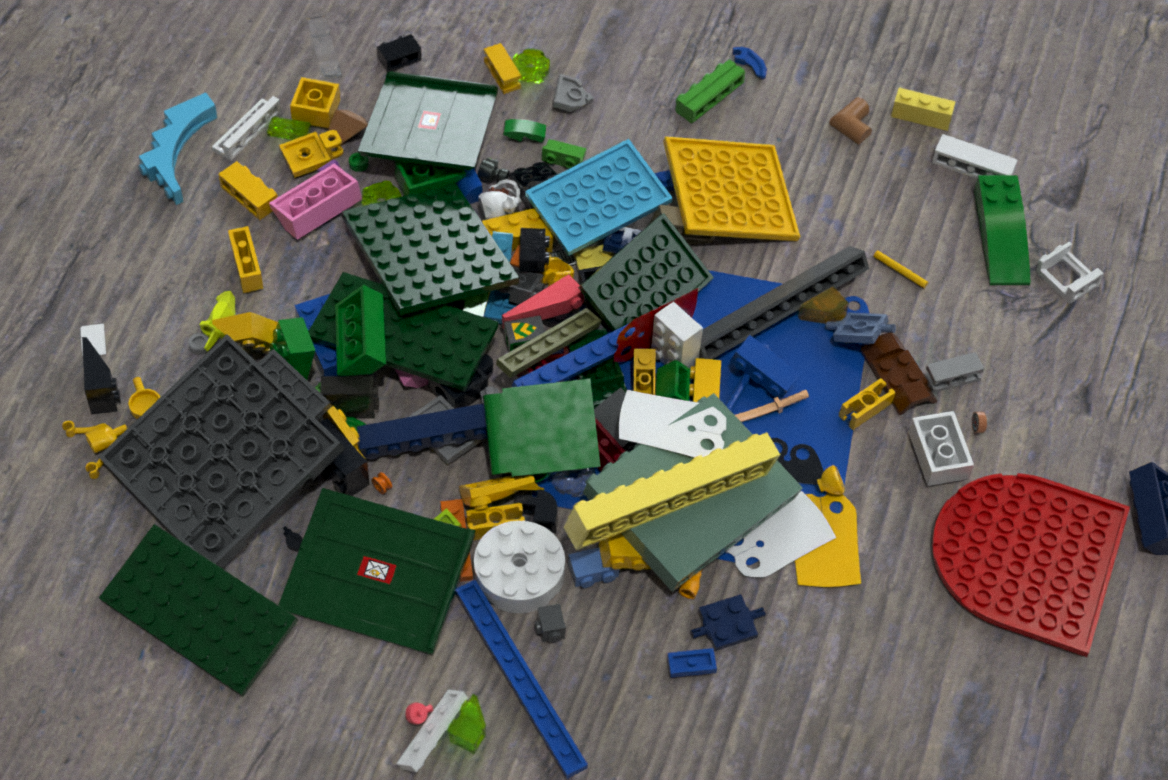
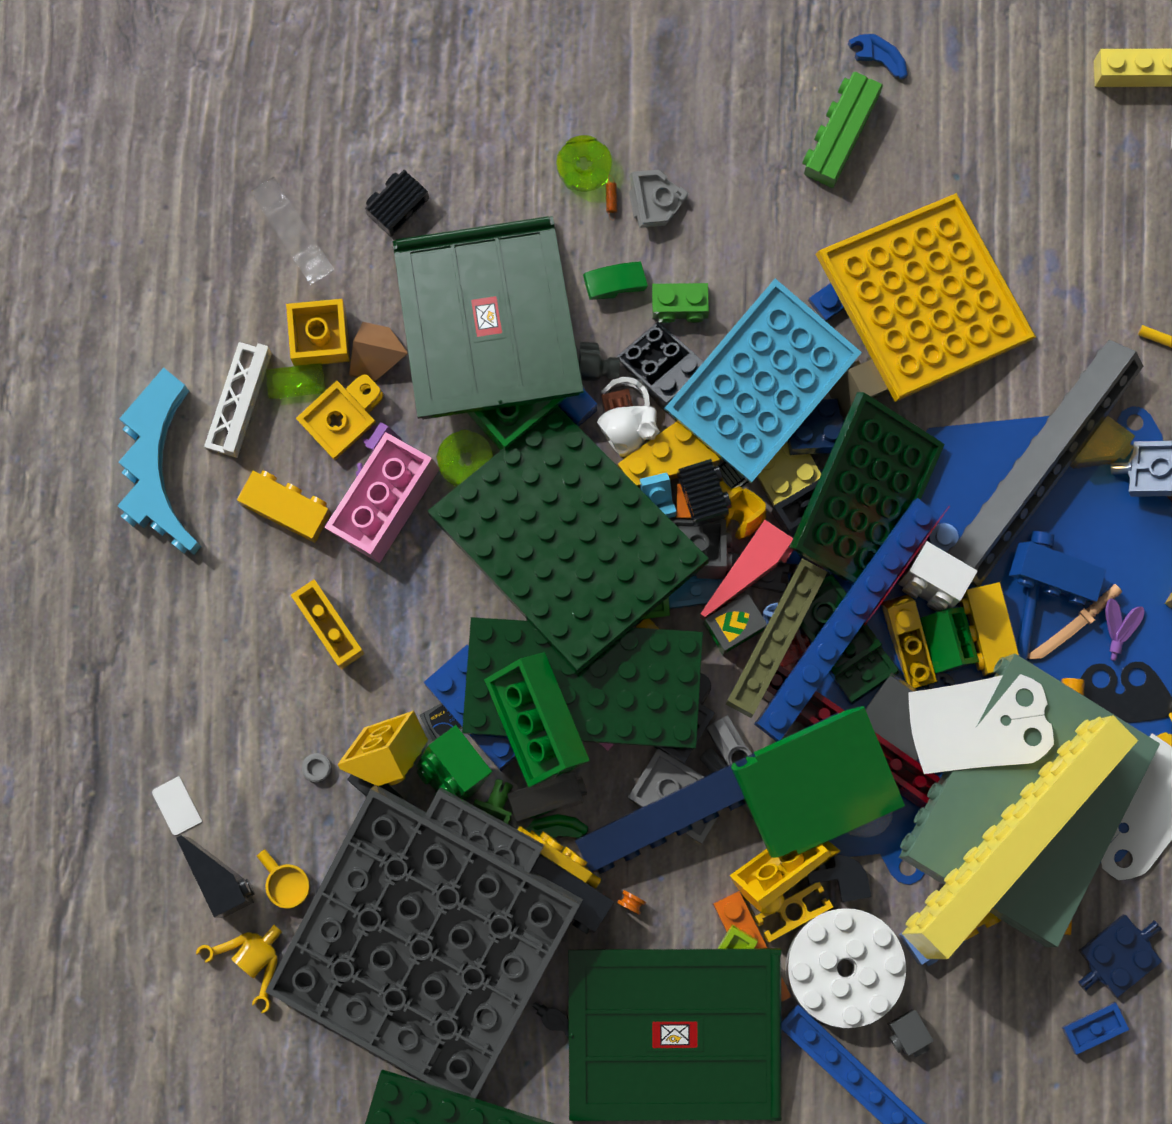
camera: 15 degrees left, 25 degrees up
(224, 308) = (330, 723): neon yellow animal -> none
(358, 163) = (406, 405): green tile -> none
(502, 68) = (548, 183): yellow piece -> none
(541, 89) = (611, 197): none -> orange piece
(798, 419) = (1119, 630): none -> medium lavender piece
(849, 123) = (1039, 116): medium nougat brick -> none

